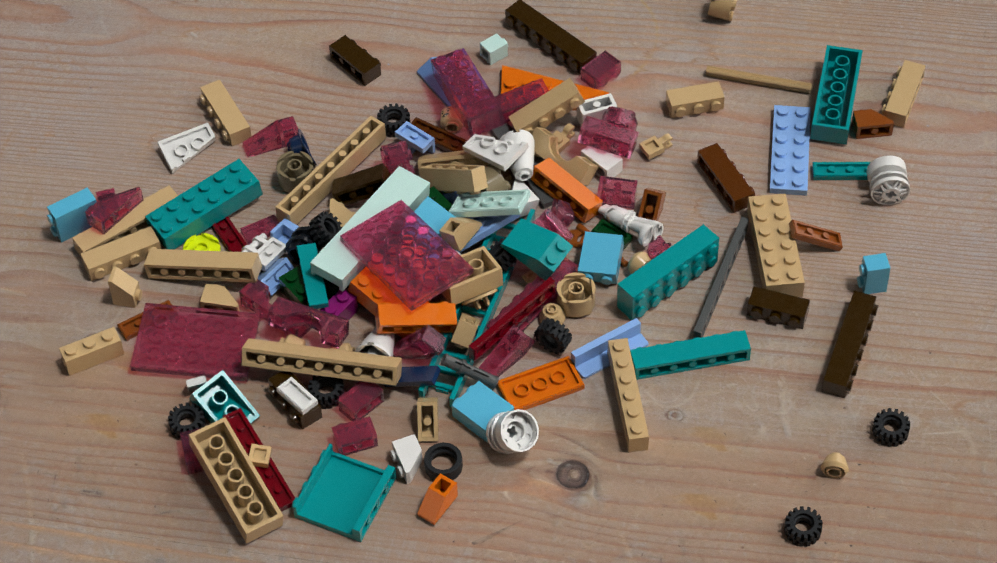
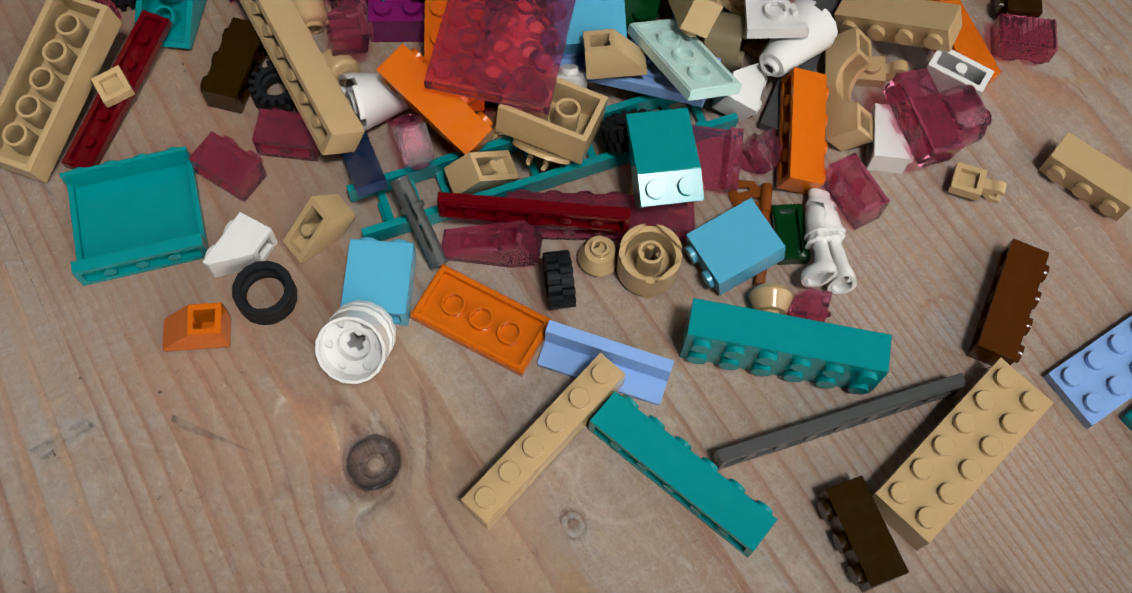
camera: 45 degrees right, 15 degrees up
(297, 395) = (226, 62): white tile -> none
(652, 204) = (876, 246): dark orange slope -> none
(815, 235) = (1026, 495): dark orange tile -> none

